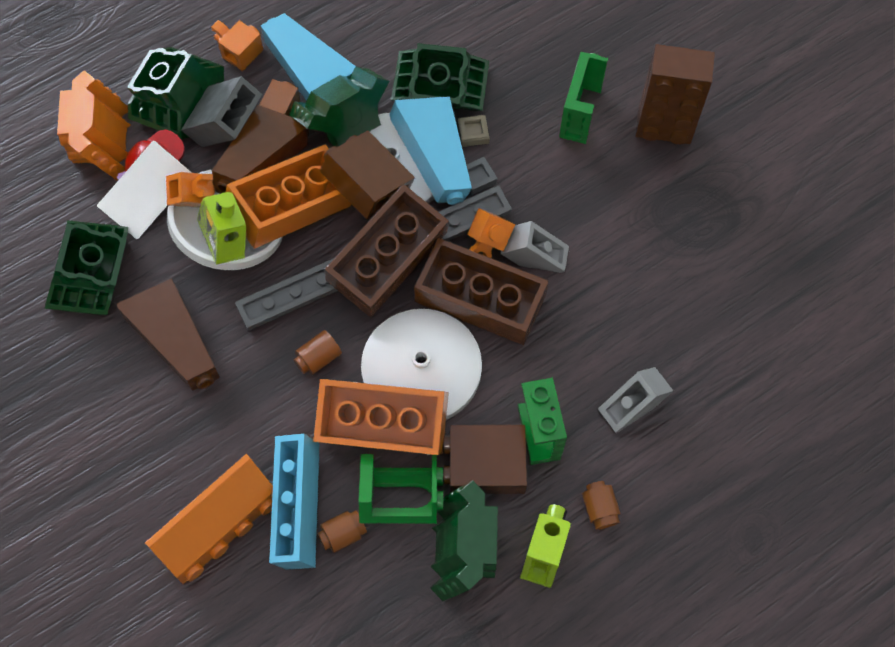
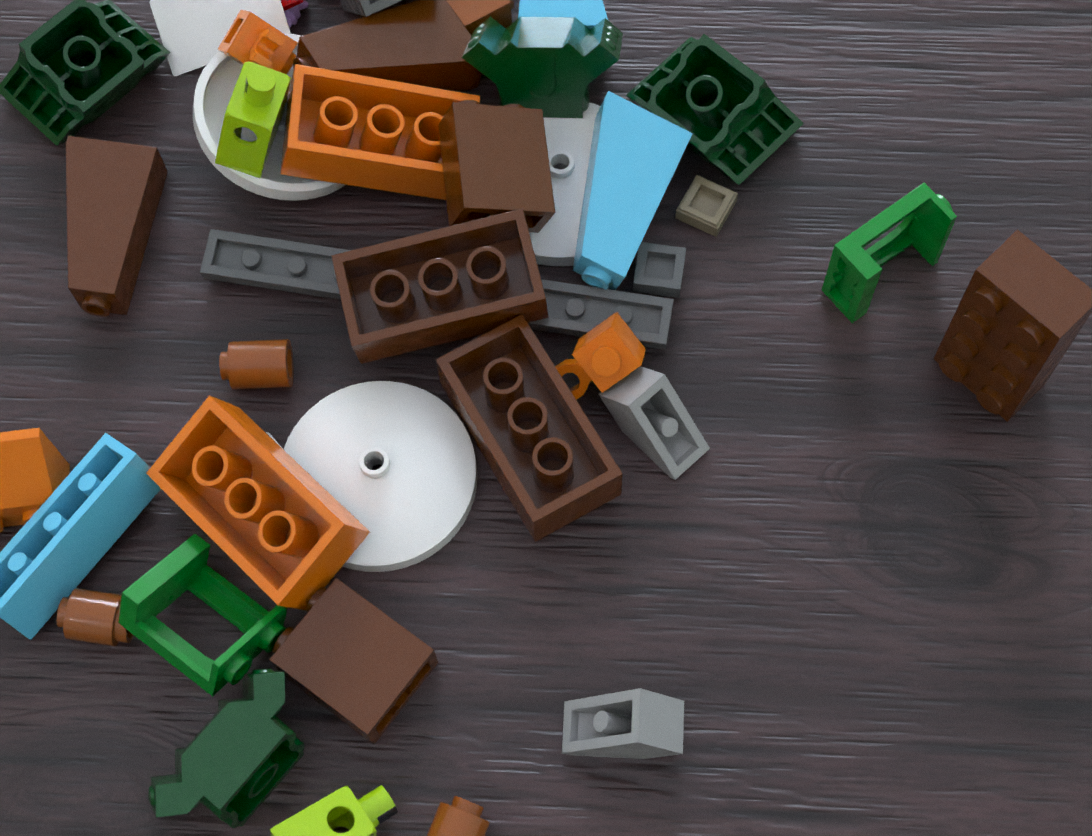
camera: 40 degrees right, 0 degrees up
(543, 427) = (457, 645): green panel -> none

